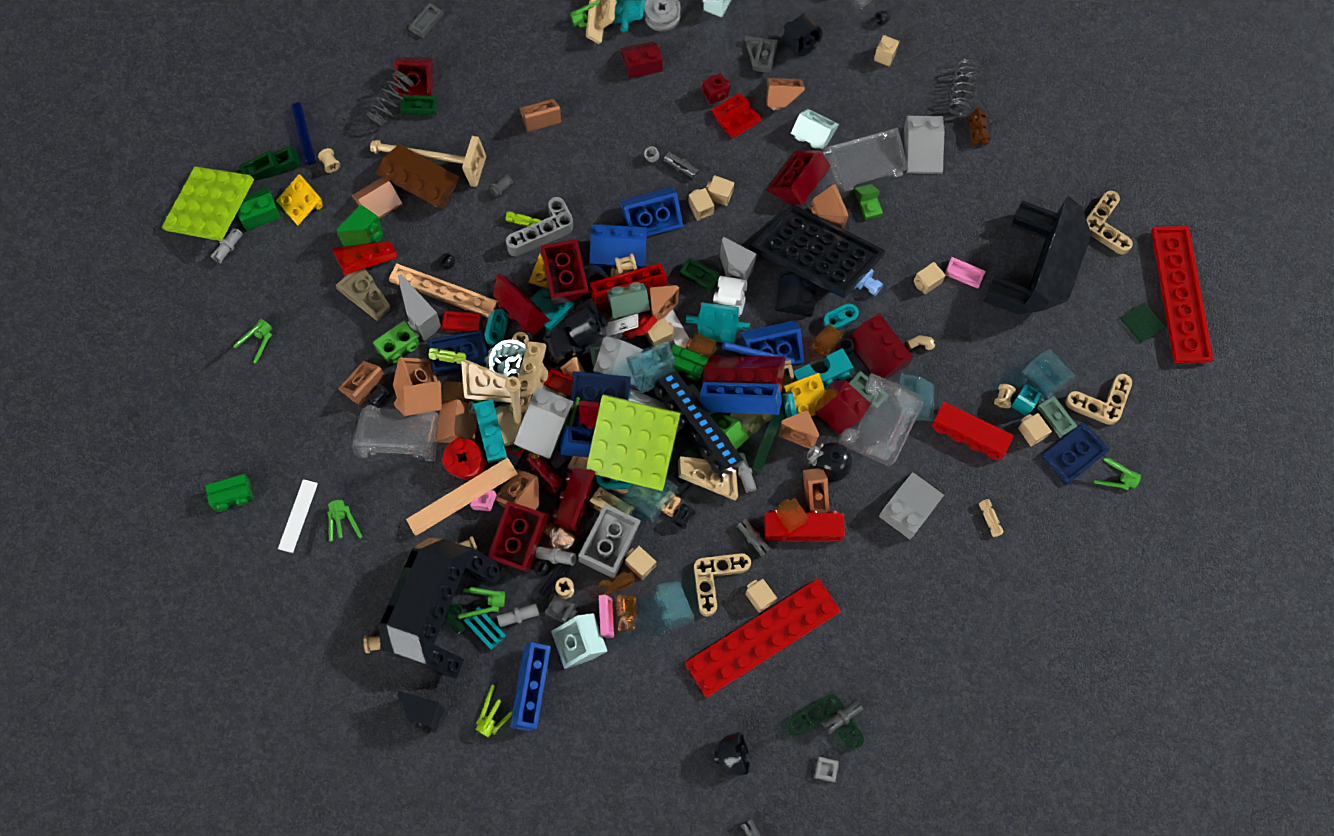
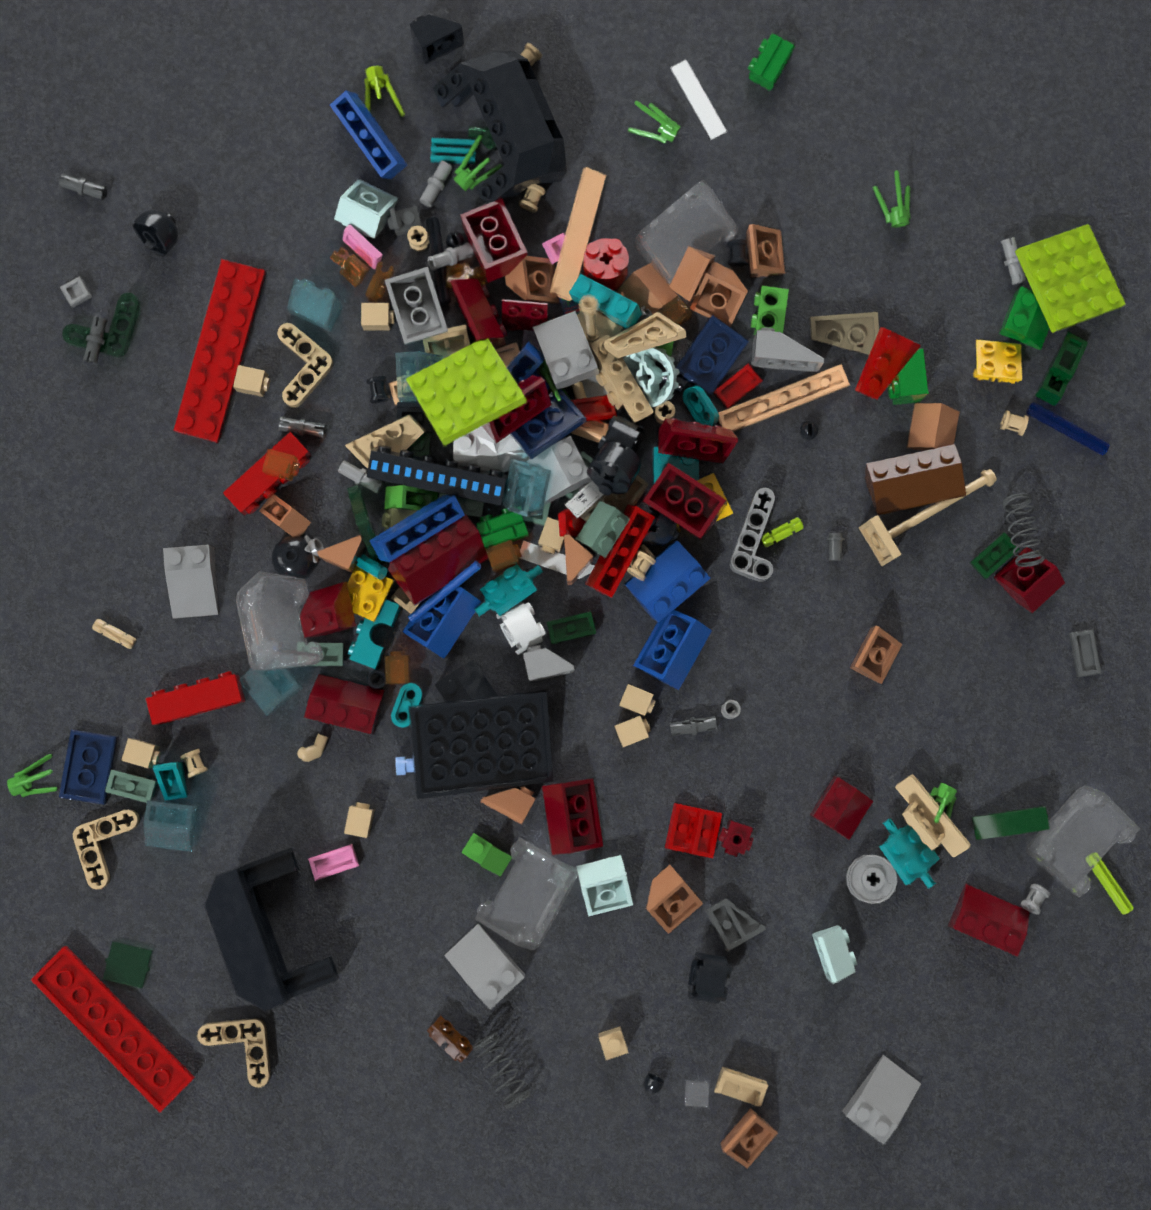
camera: 140 degrees right, 15 degrees up
(447, 356) = (713, 338): lime axle -> none

